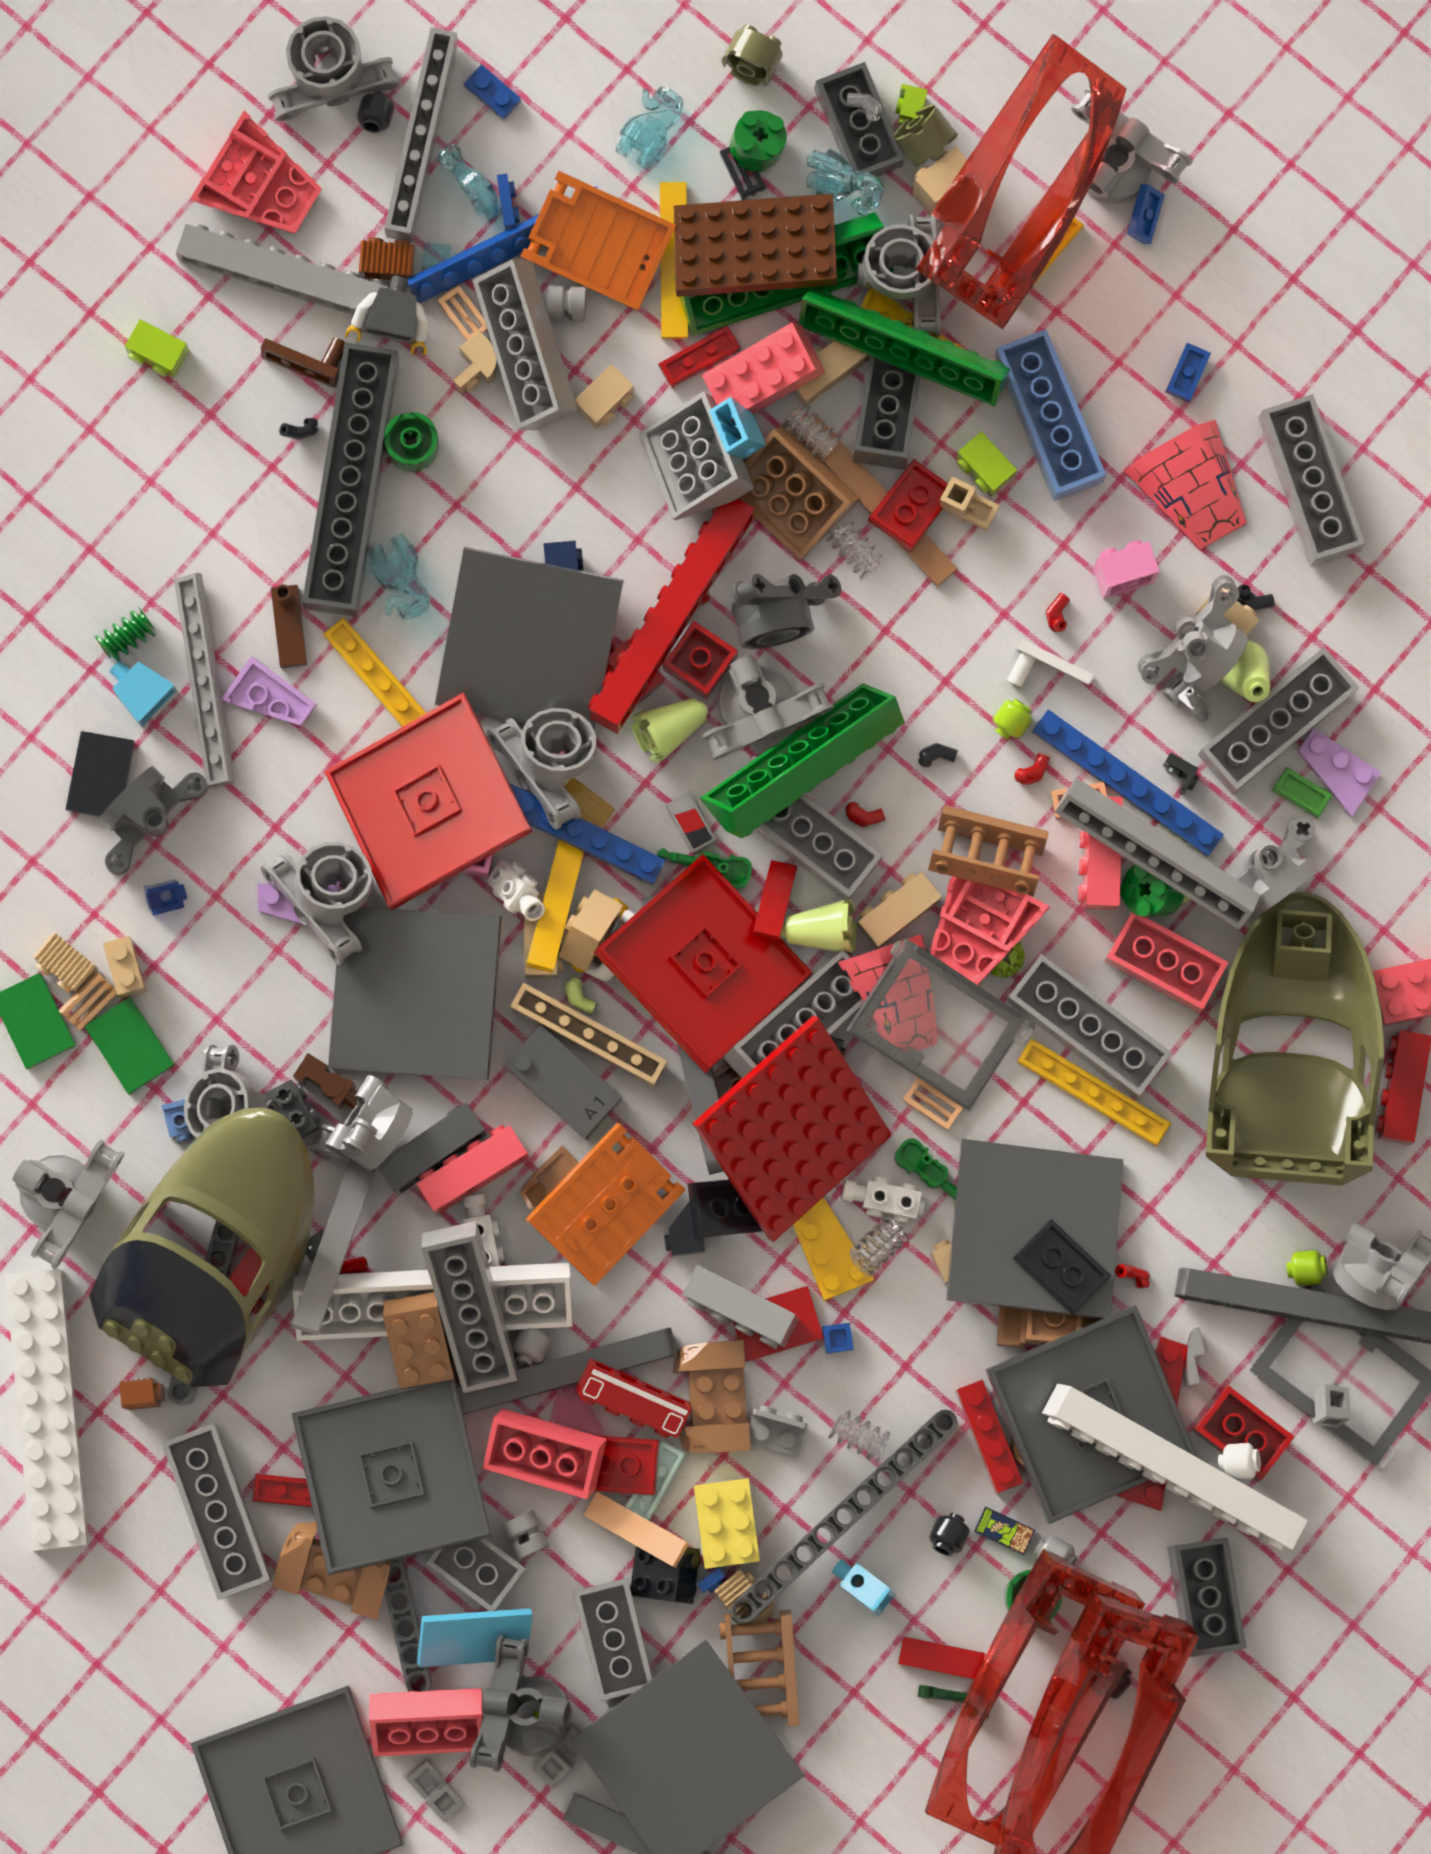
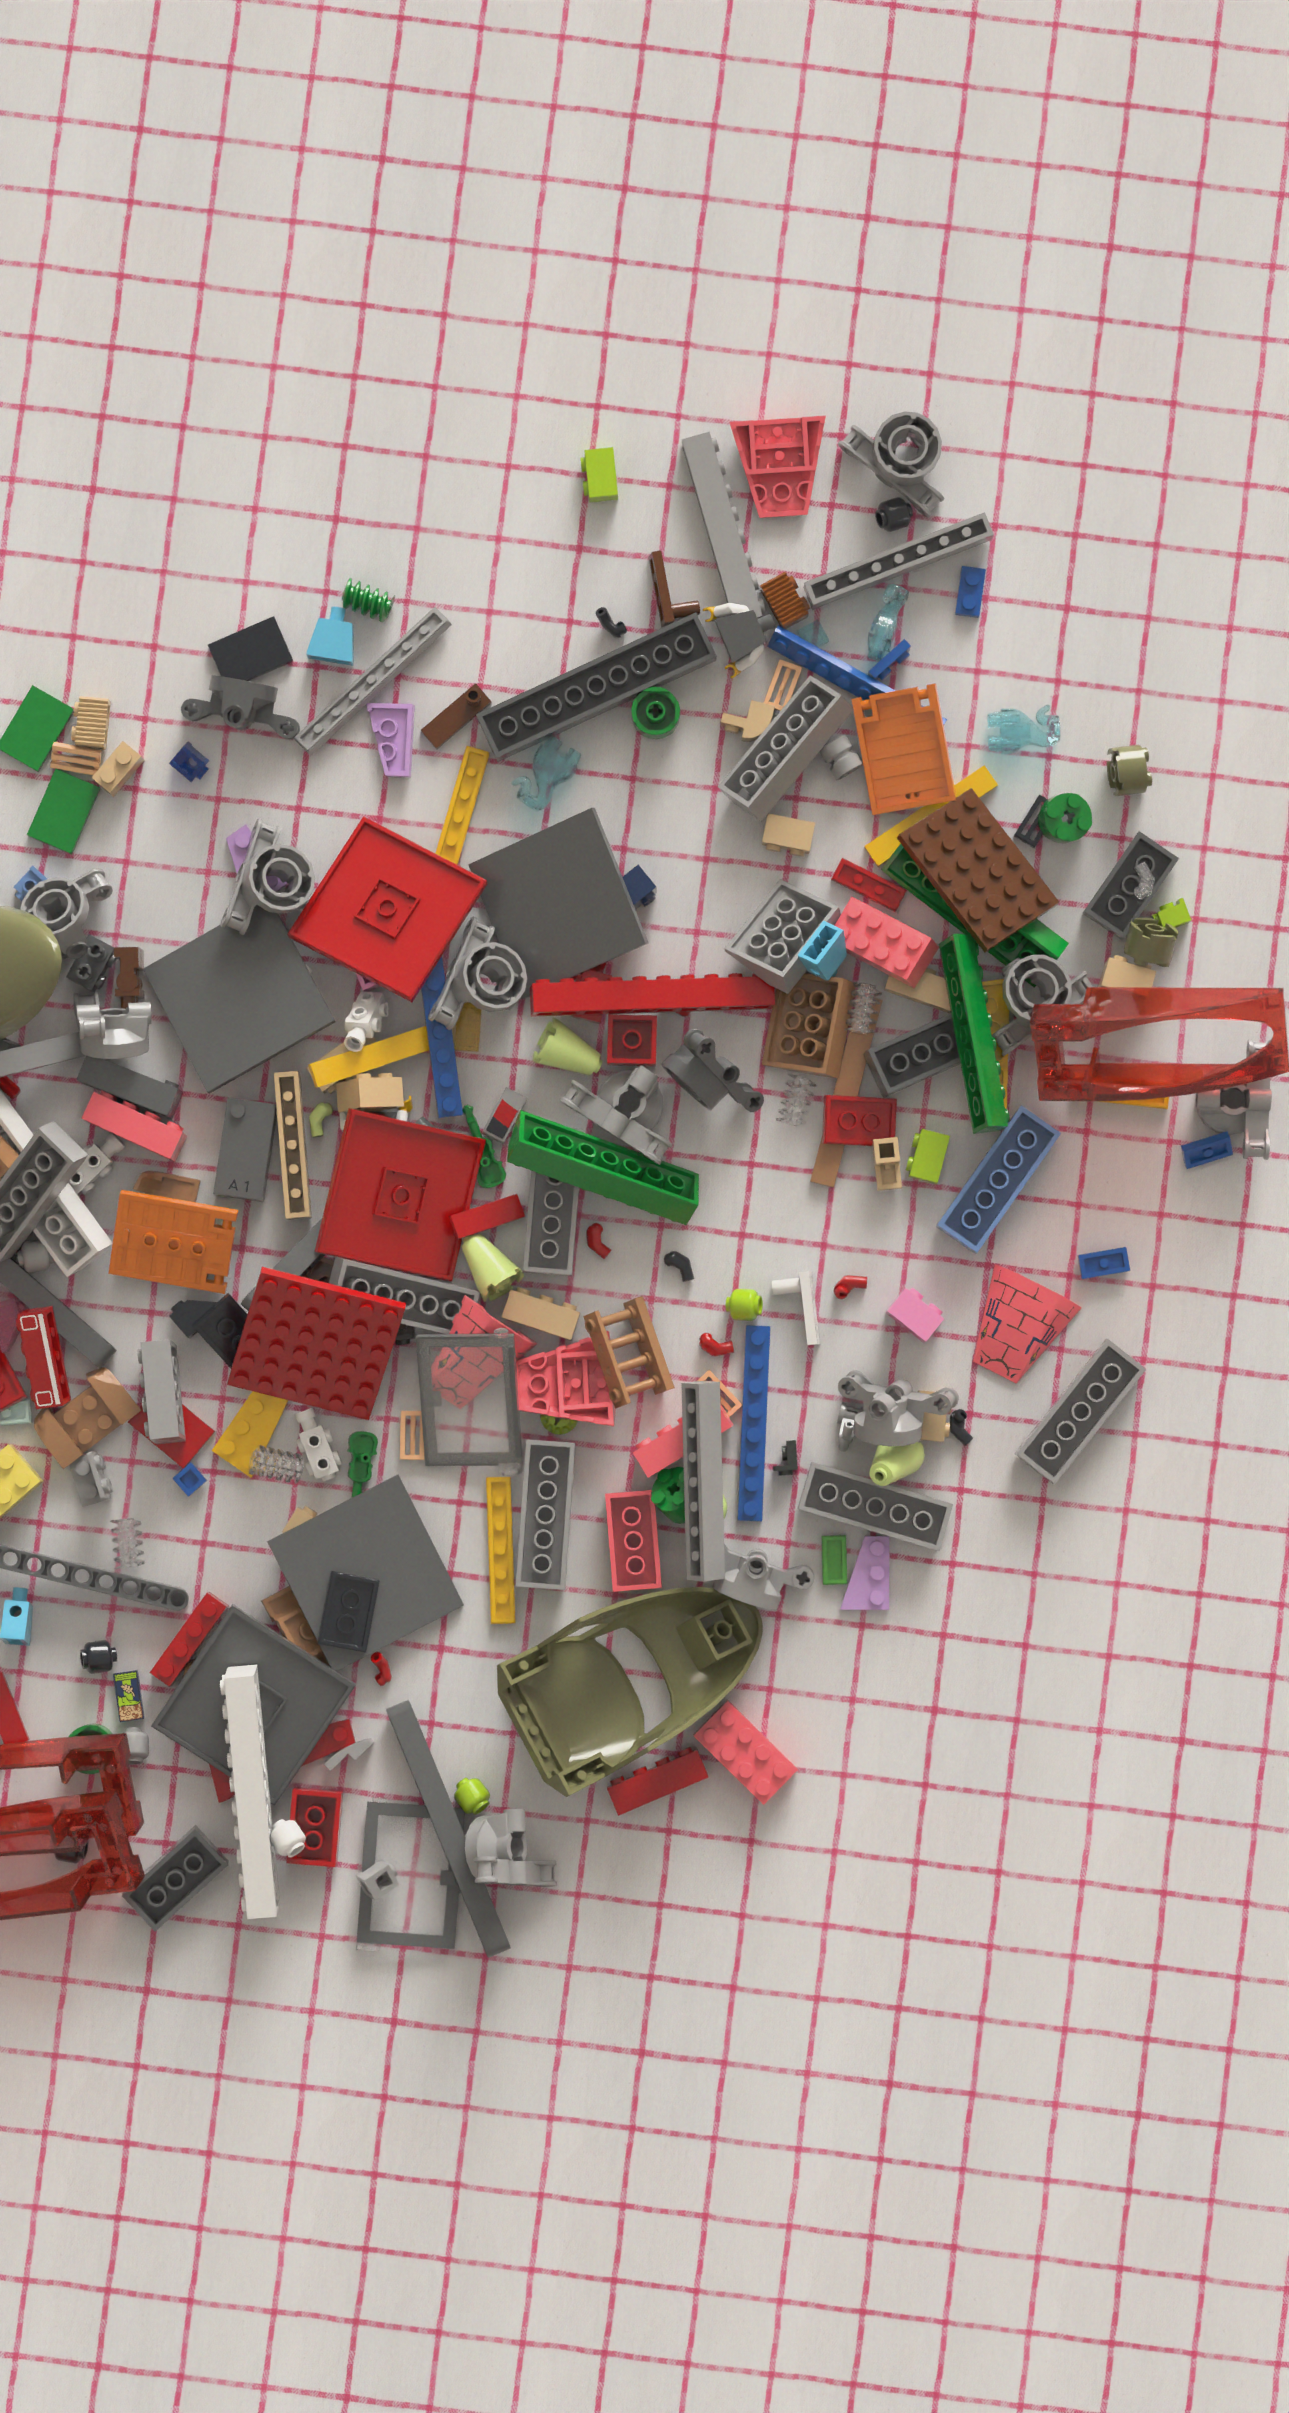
camera: 65 degrees right, 5 degrees up
(837, 177) = (1074, 896): clear light blue hips -> none

